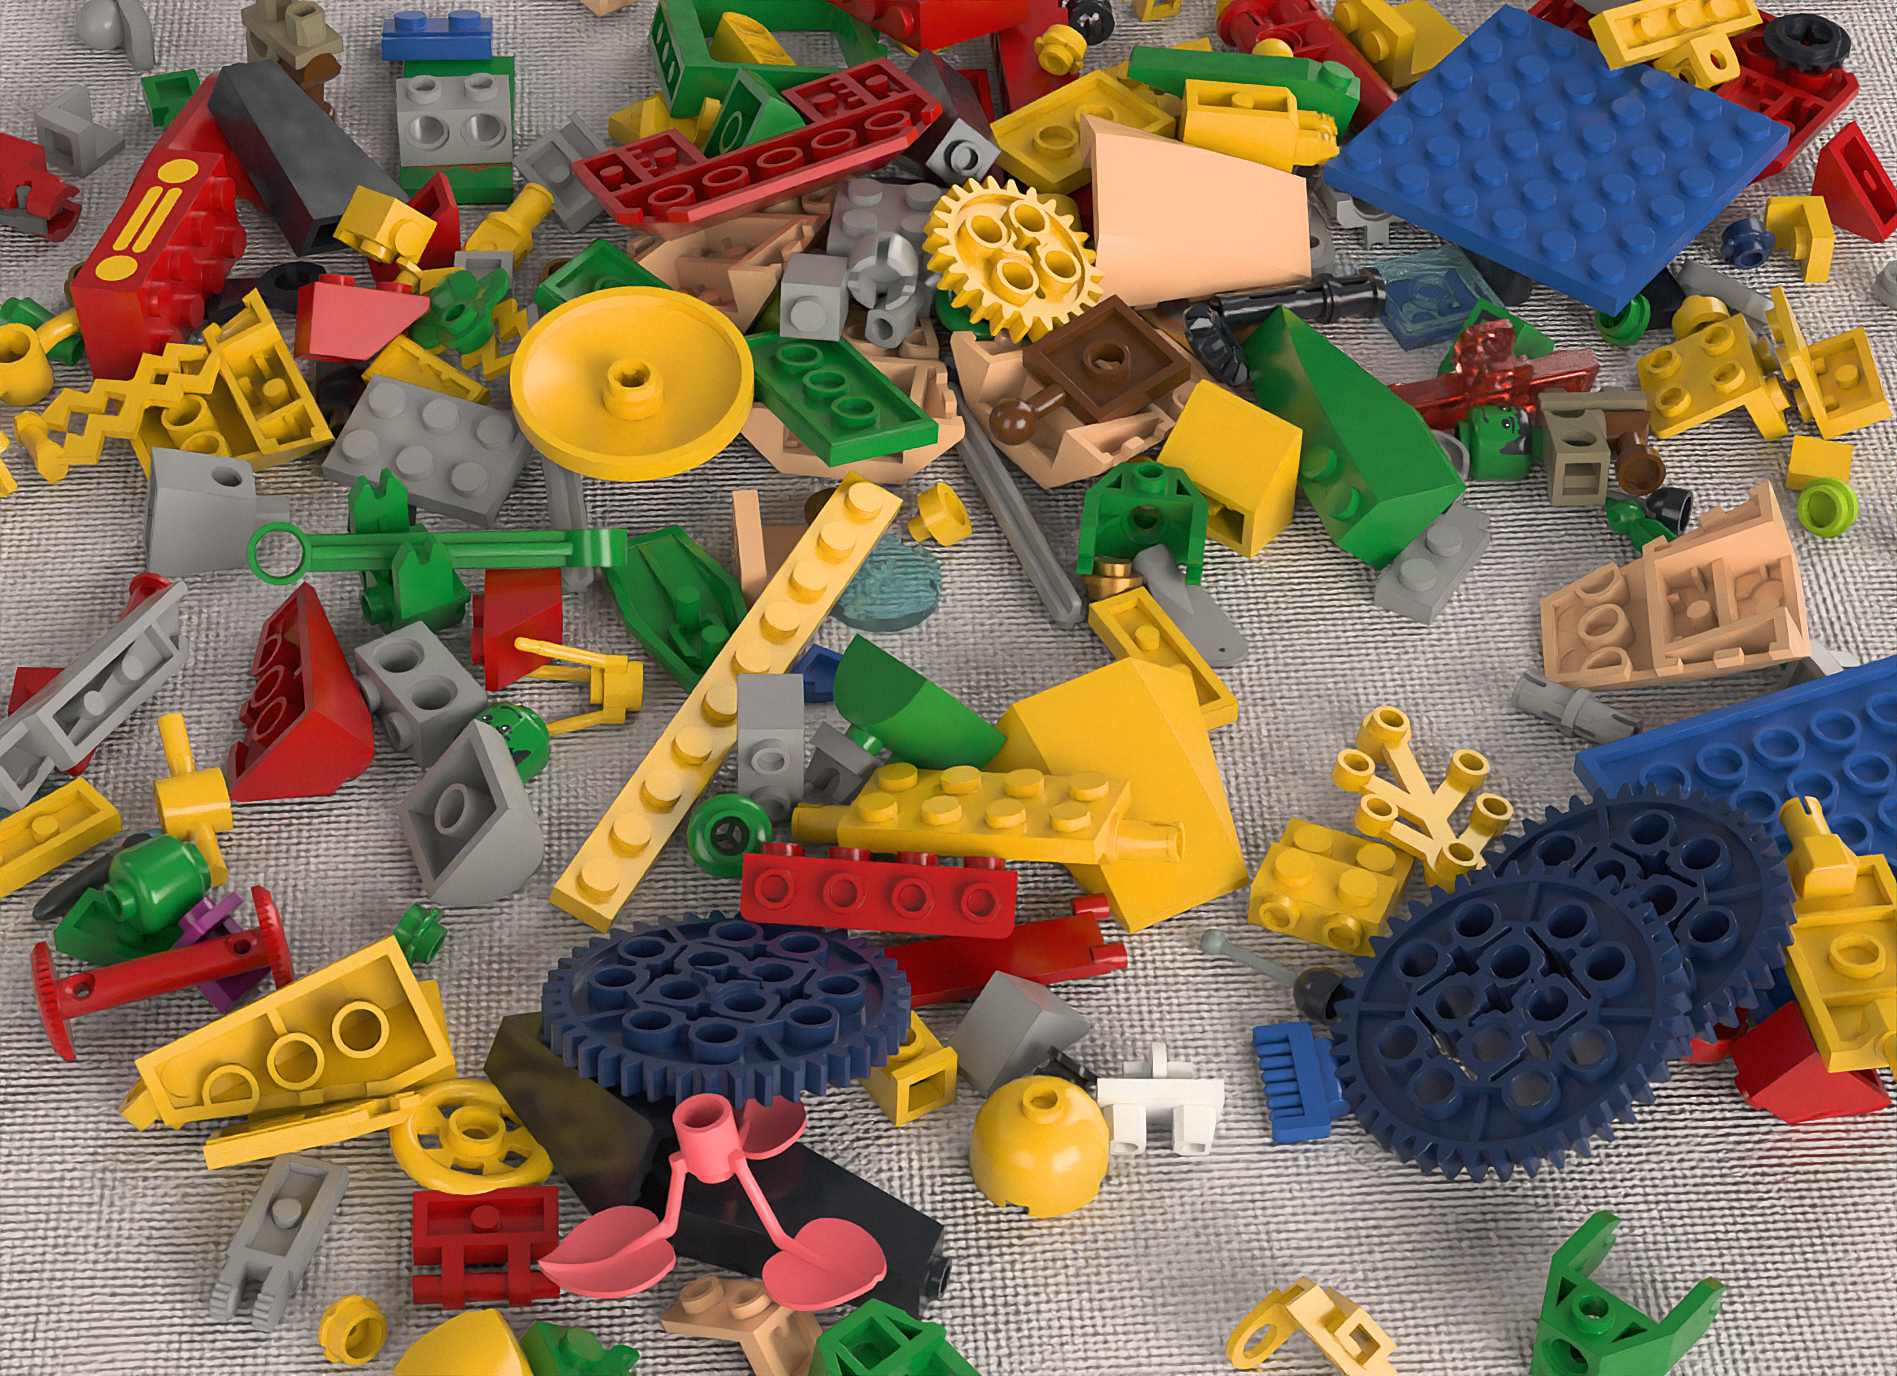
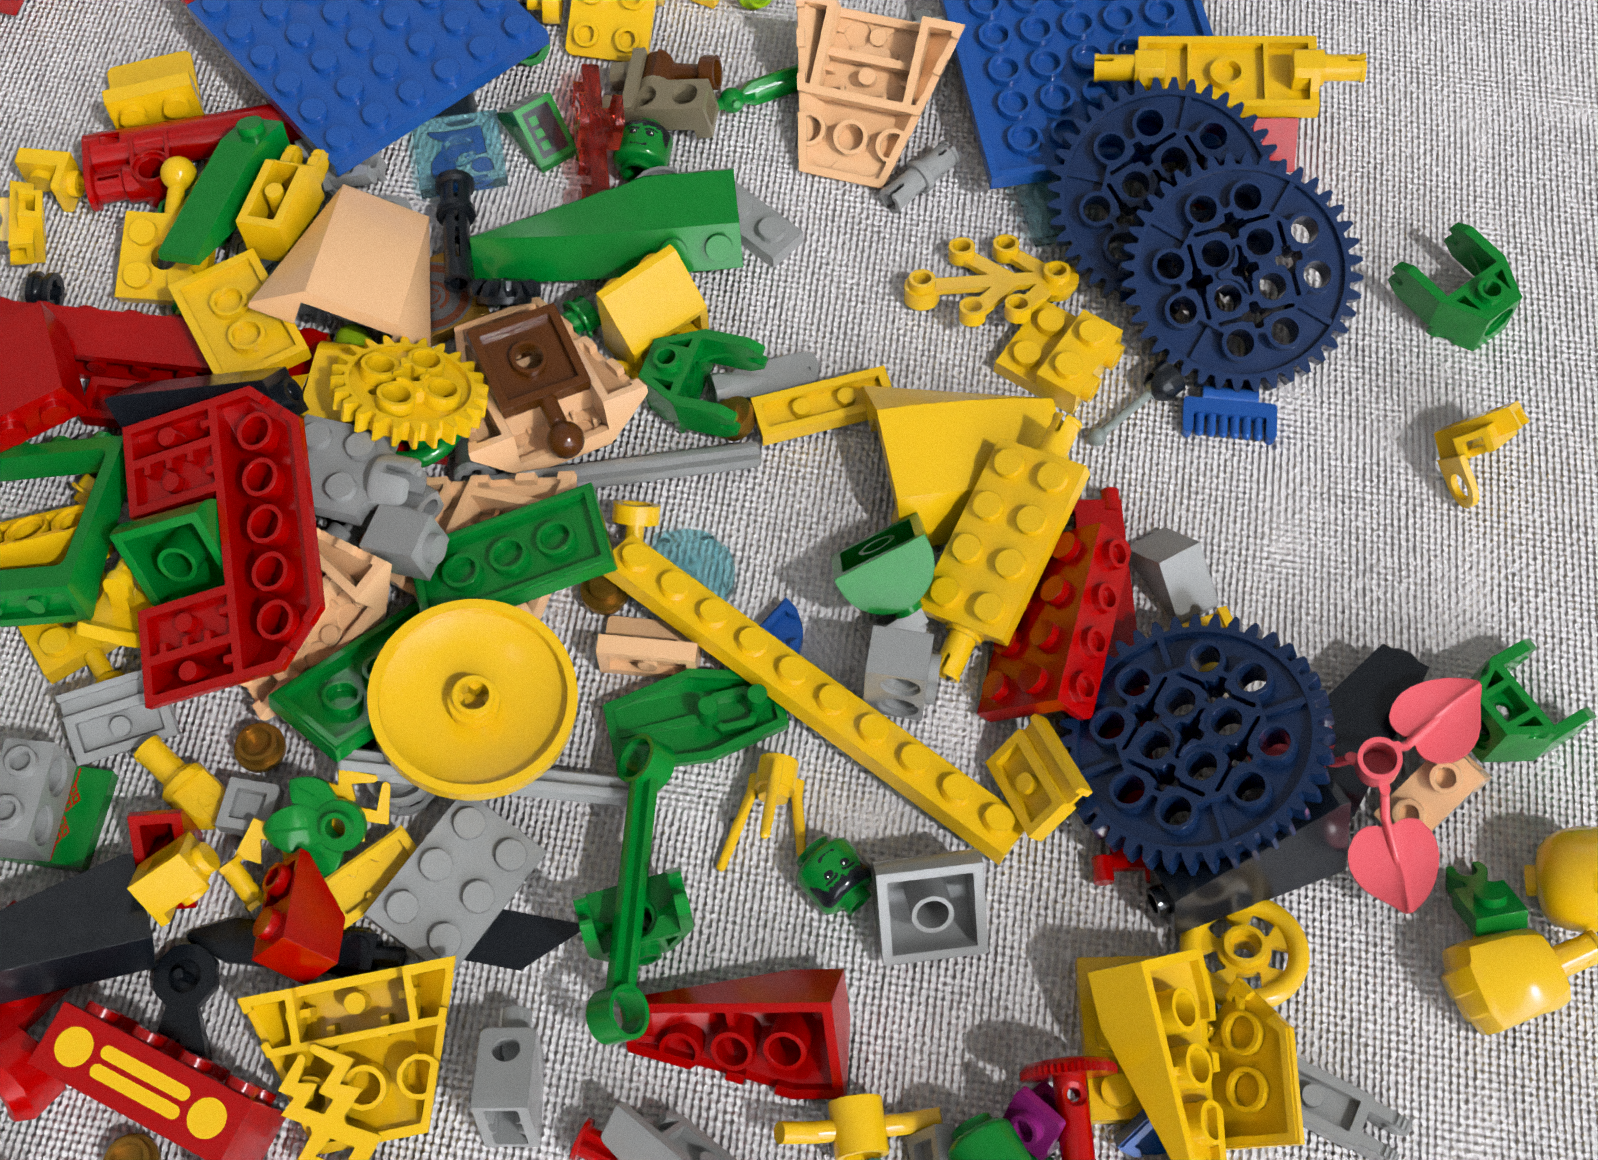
camera: 75 degrees left, 20 degrees up
(352, 1330) = (1420, 1062): yellow plate -> none
(417, 691) = (755, 917): light grey brick -> none
(420, 934) = (1026, 966): green plate -> none
(484, 1228) = (1333, 945): red plate -> none
(515, 606) = (699, 842): red slope -> none
(665, 895) = (1038, 777): none -> yellow plate
(713, 813) = (973, 721): green head -> none
(1040, 1146) = (1282, 579): yellow cylinder -> none
(1061, 50) = (122, 309): yellow plate -> none
(1067, 1068) = (1228, 547): black bush -> none
(1160, 1095) = (1252, 498): white hips -> none
(1667, 504) = (735, 73): black hinge -> none

